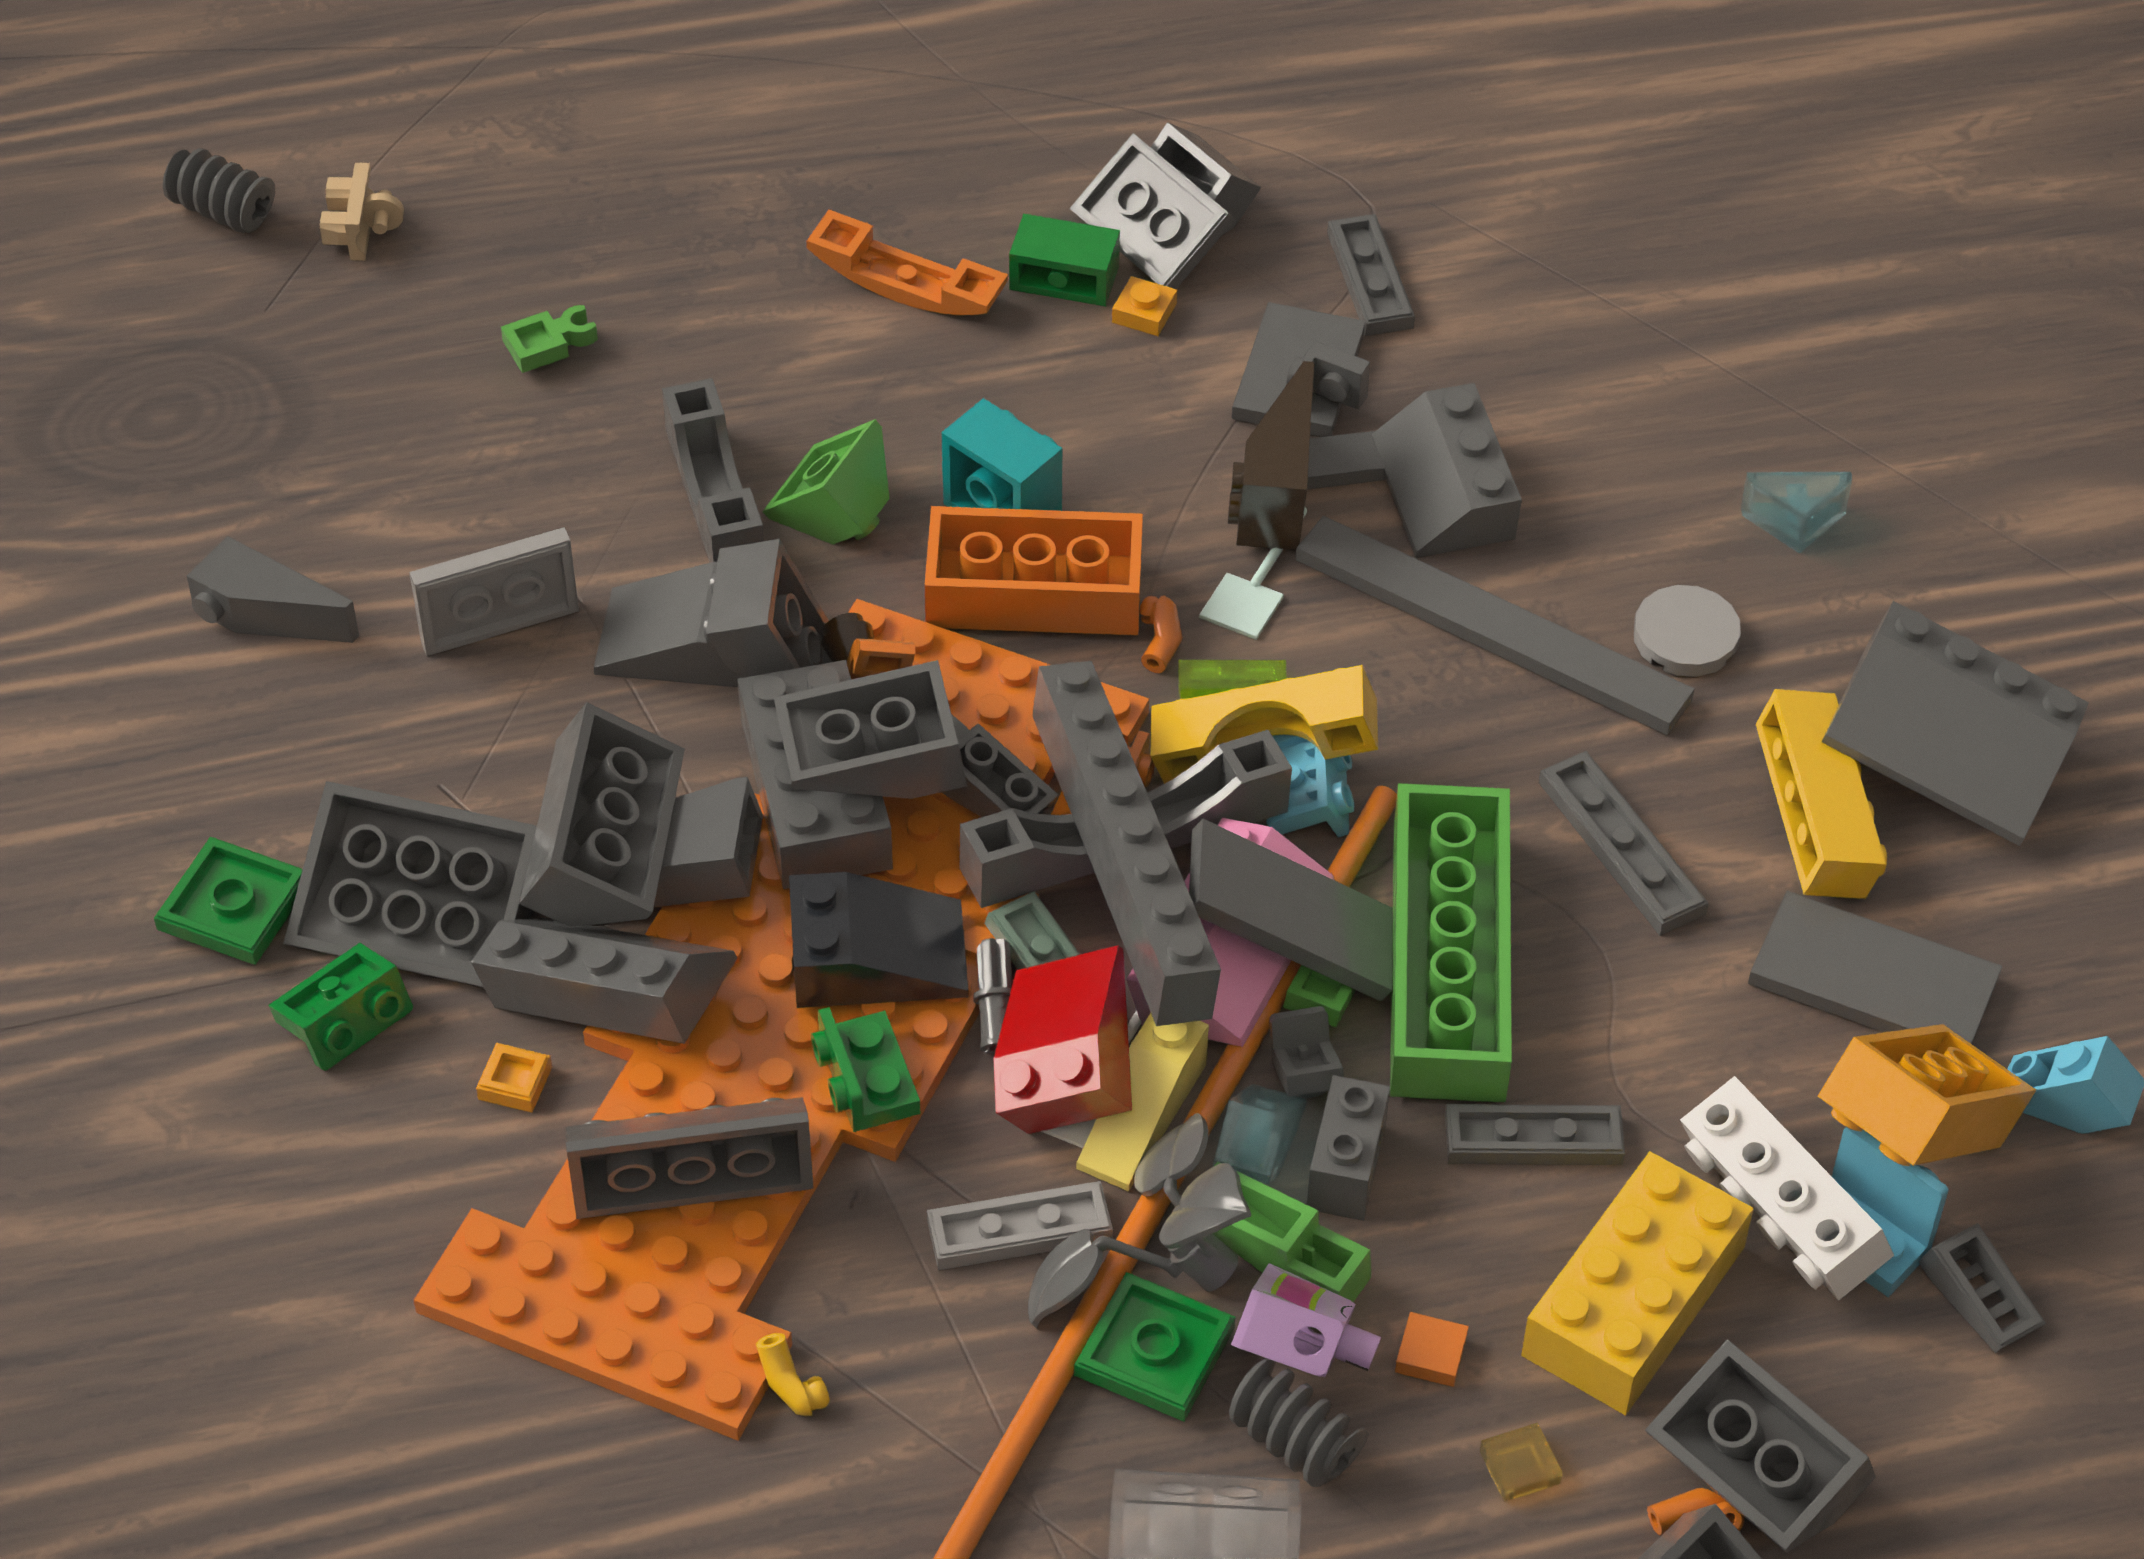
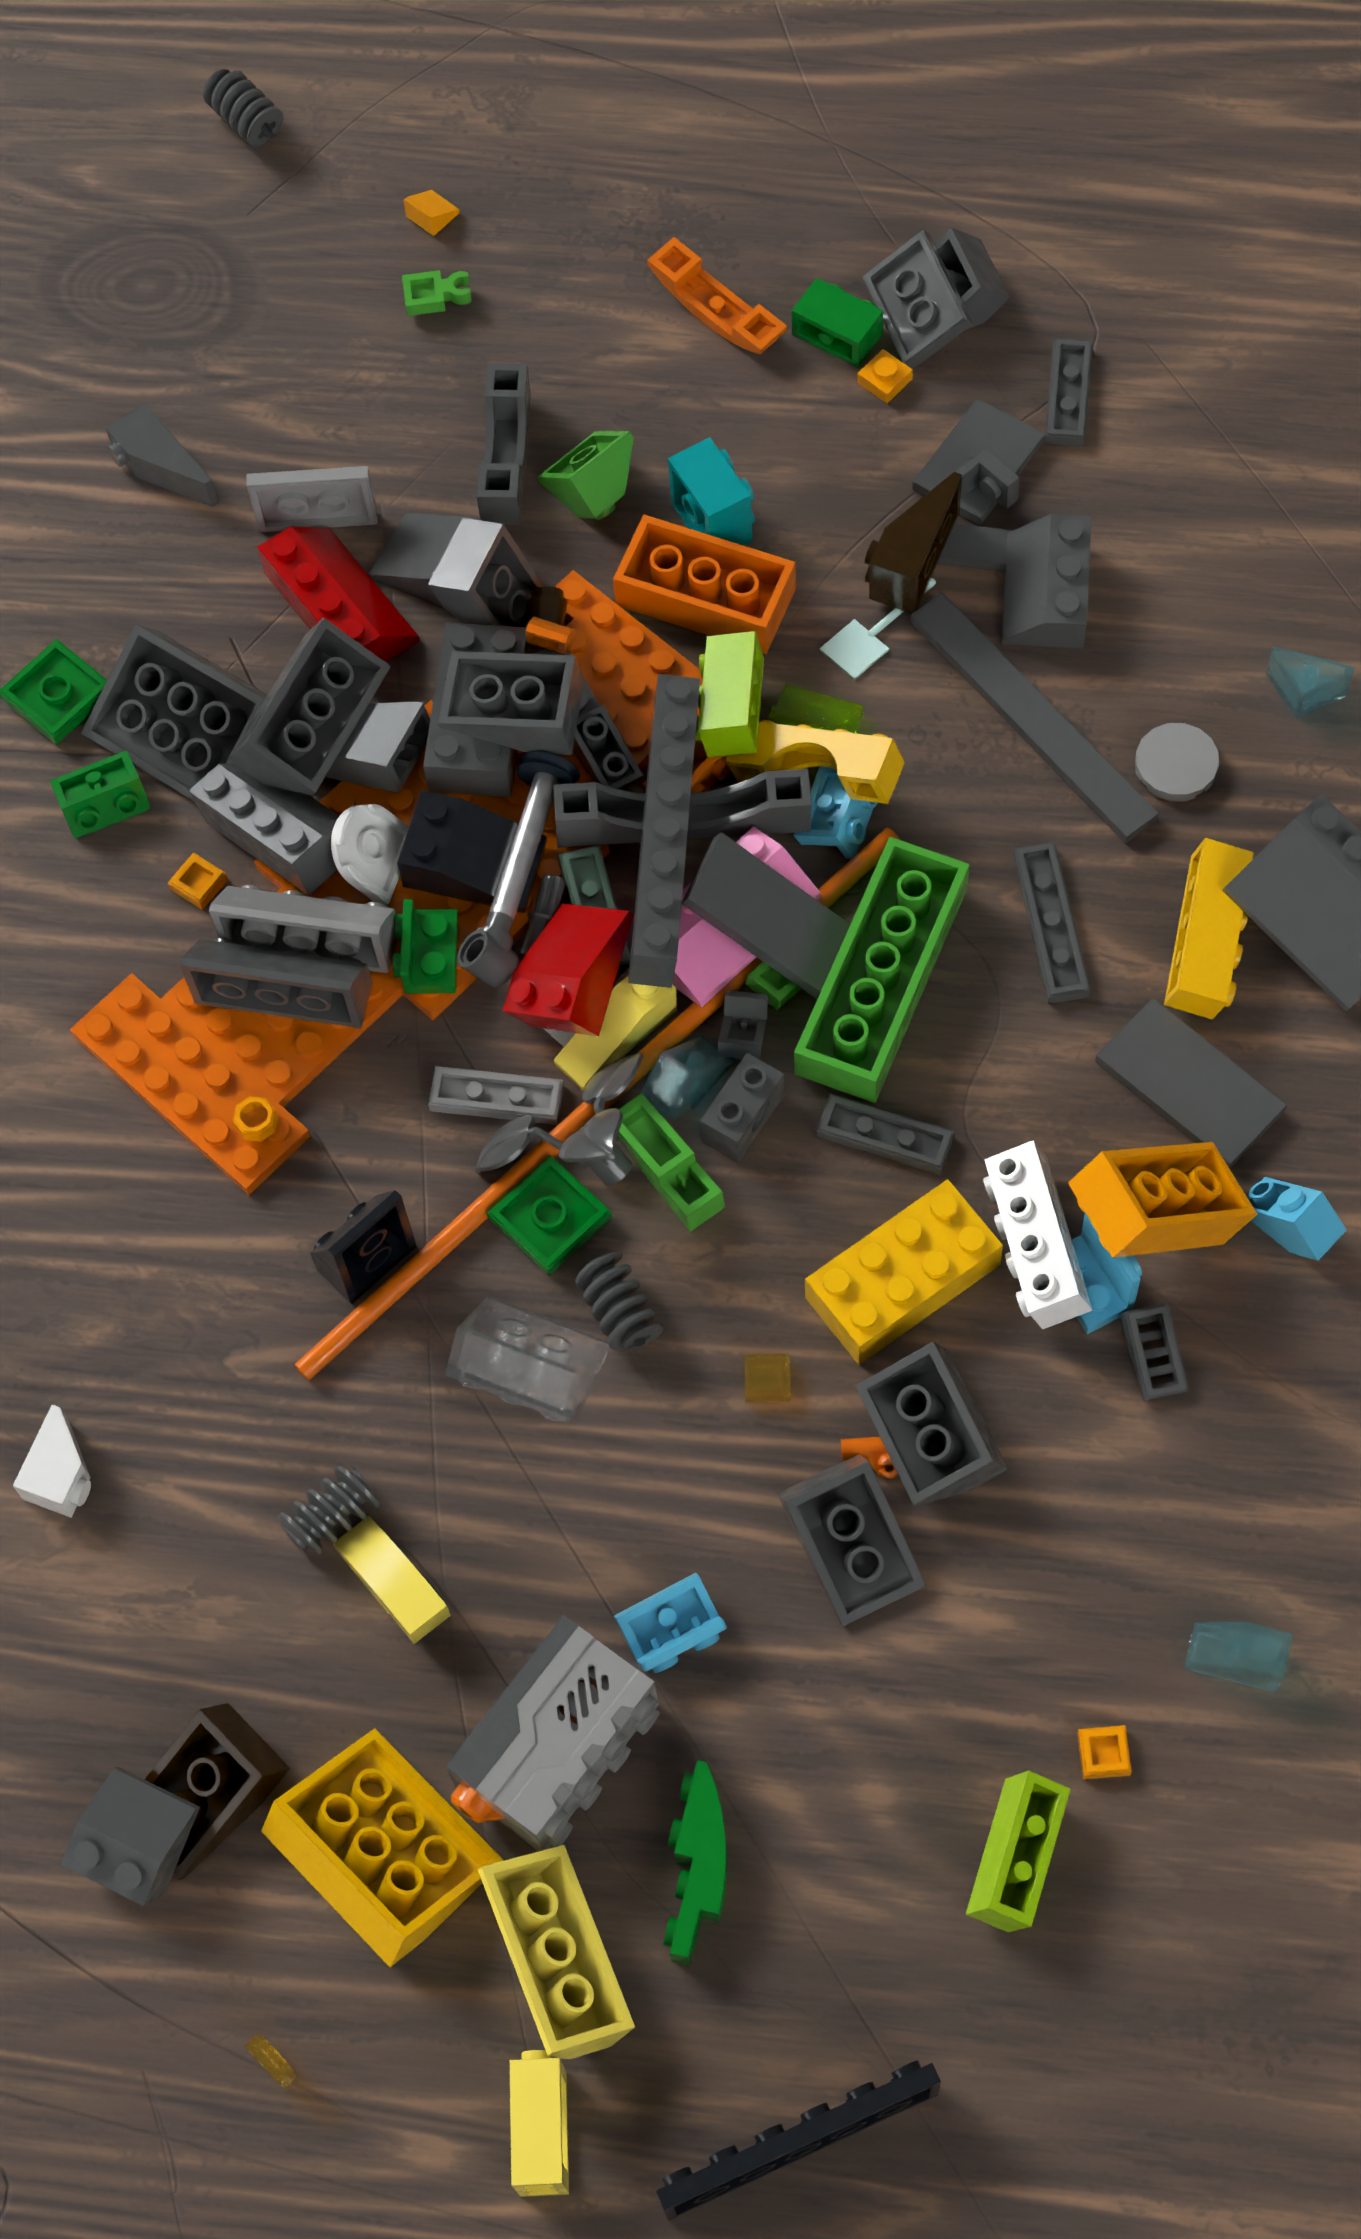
camera: 25 degrees right, 15 degrees up
(364, 211) = (342, 150): tan hips -> none
(502, 255) = (430, 211): none -> light orange slope
(540, 689) = (326, 581): none -> red slope
(701, 1073) = (307, 923): none -> light grey slope
(722, 1331) = (255, 1118): none -> light orange tile
(748, 966) = (367, 849): none -> white tile
(784, 1380) = (291, 1163): yellow arm -> none
(934, 1442) = (365, 1245): none -> black slope
(950, 1039) = (488, 949): none -> piece
(1130, 674) = (730, 694): none -> lime brick
(1167, 629) = (787, 656): orange arm -> none
(1280, 1320) = (647, 1233): lavender torso -> none
(1431, 1349) = (741, 1275): orange tile -> none

